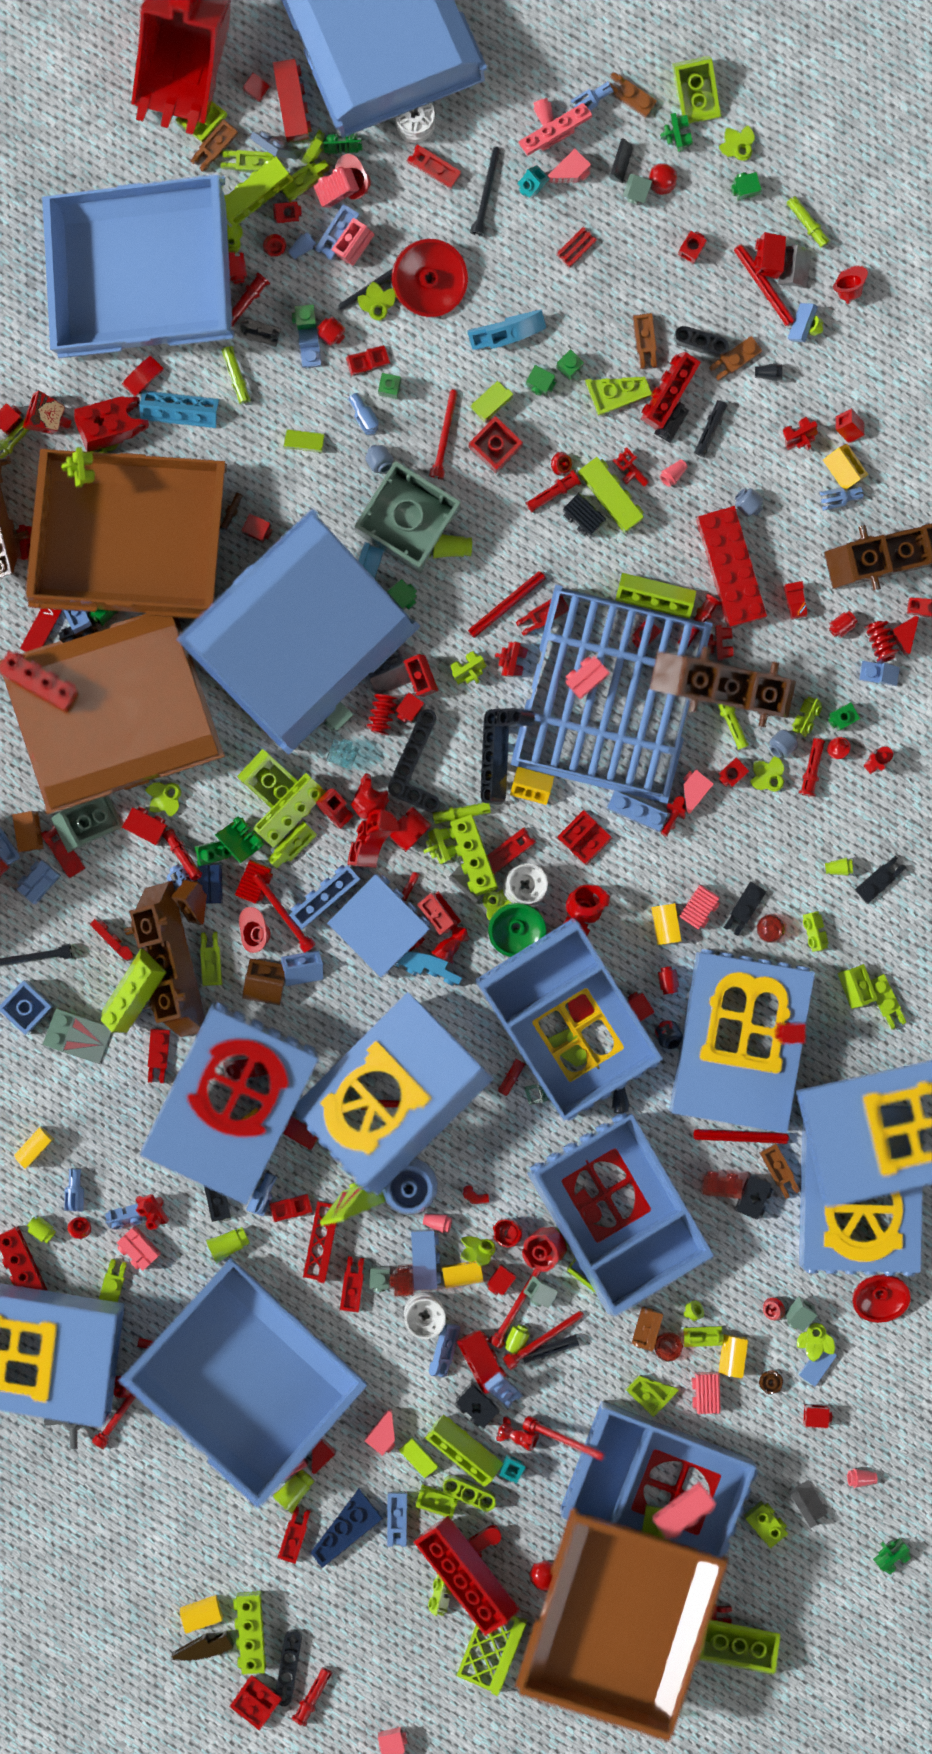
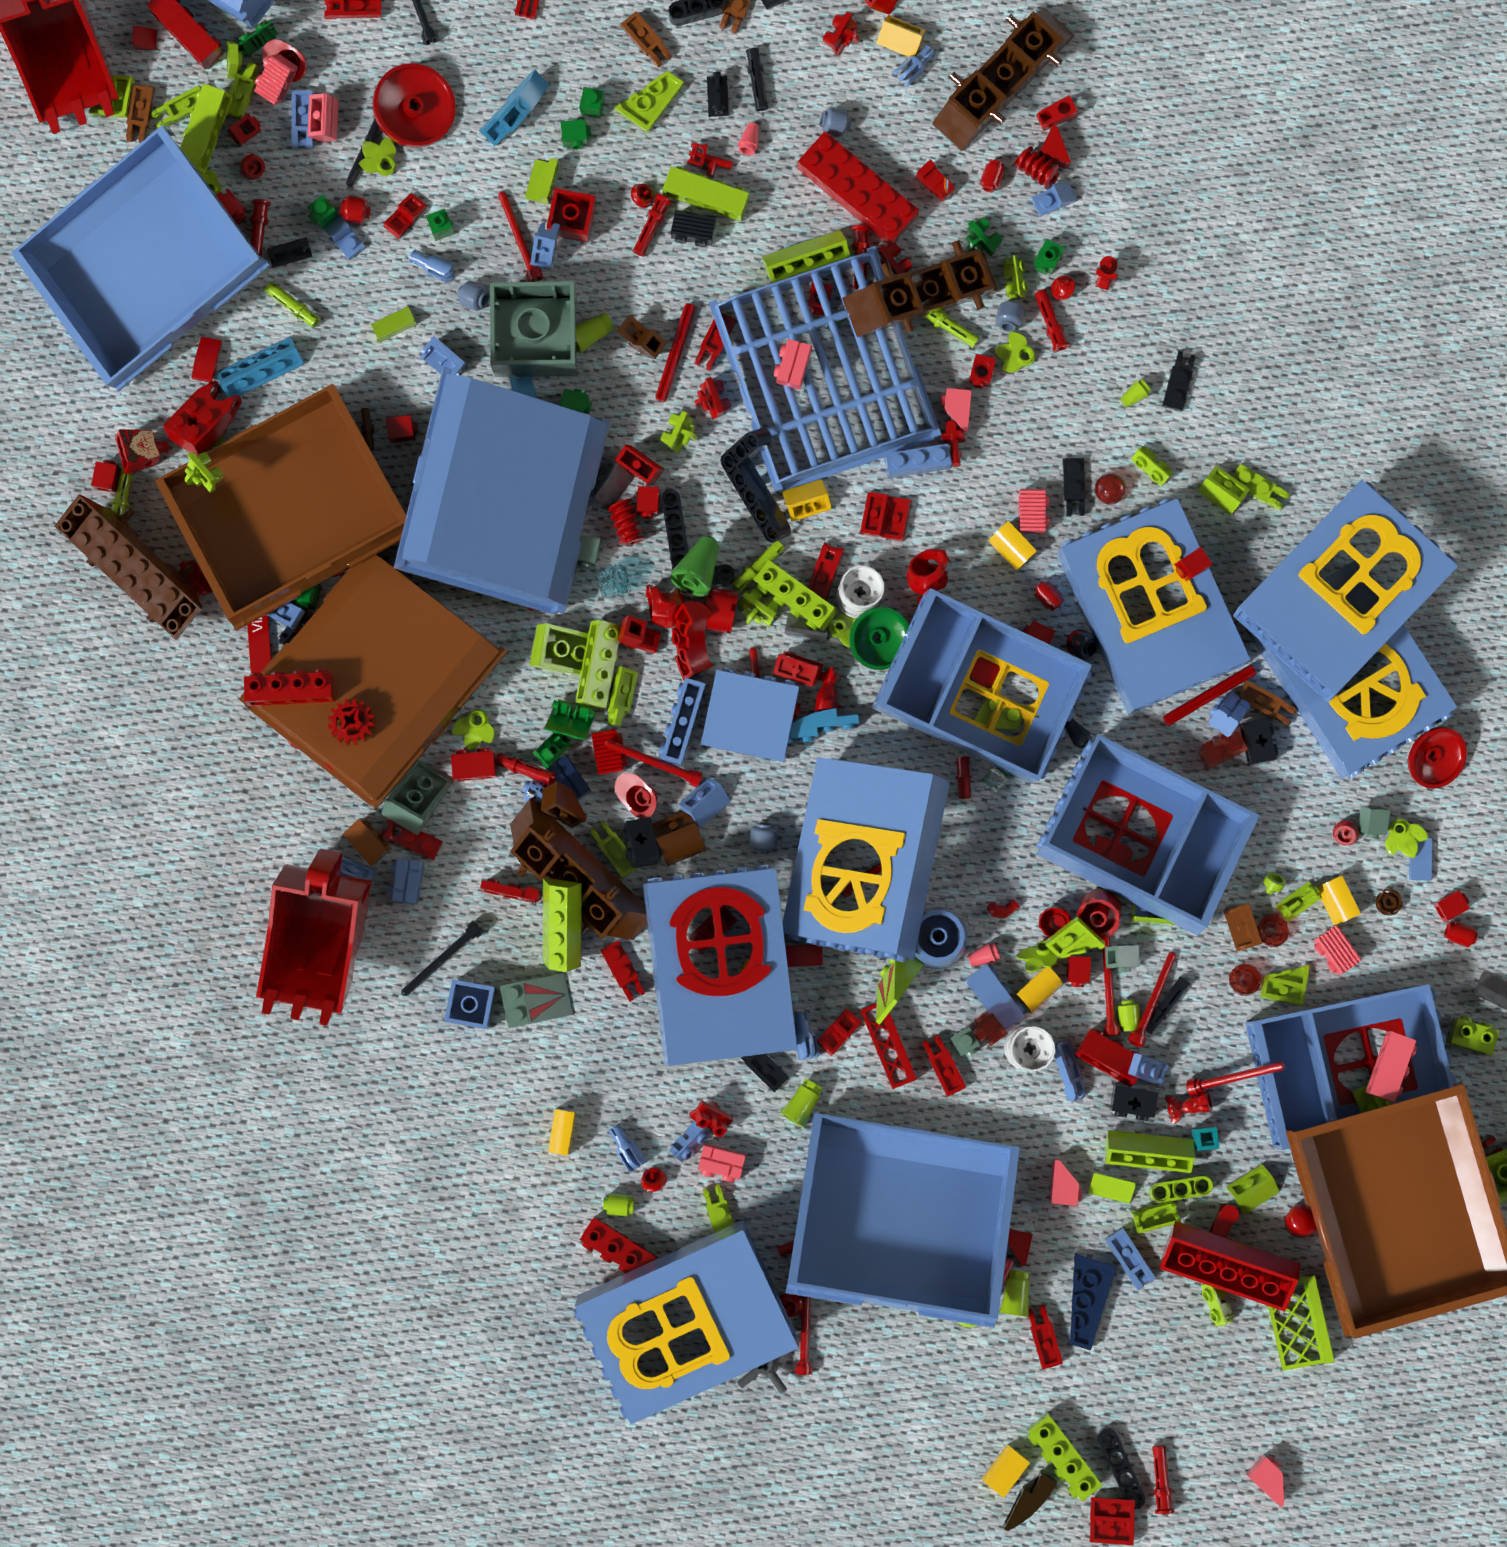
camera: 30 degrees left, 5 degrees down
(60, 741) = (355, 714): none -> red gear
(240, 960) = (640, 842): none -> black brick
(274, 146) = (197, 77): sand blue wing -> none
(302, 245) = (278, 150): medium blue cone -> none
(323, 494) = (440, 356): none -> medium blue hinge
(329, 1024) = (763, 837): none -> sand blue head
(412, 786) = (697, 567): none -> bright green cone
(458, 457) = (544, 246): none -> medium blue hinge
(487, 577) = (640, 338): none -> reddish brown brick
(512, 1256) = (1073, 939): none -> lime wing
(524, 1528) = (1253, 1189): none -> lime panel
(626, 1373) = (1251, 980): none -> clear red hair
(670, 390) = (698, 67): red brick -> none
(744, 1161) = (1228, 713): none -> medium blue brick
(802, 660) = (977, 230): none -> green hips
(809, 1441) = (1460, 934): none -> red brick

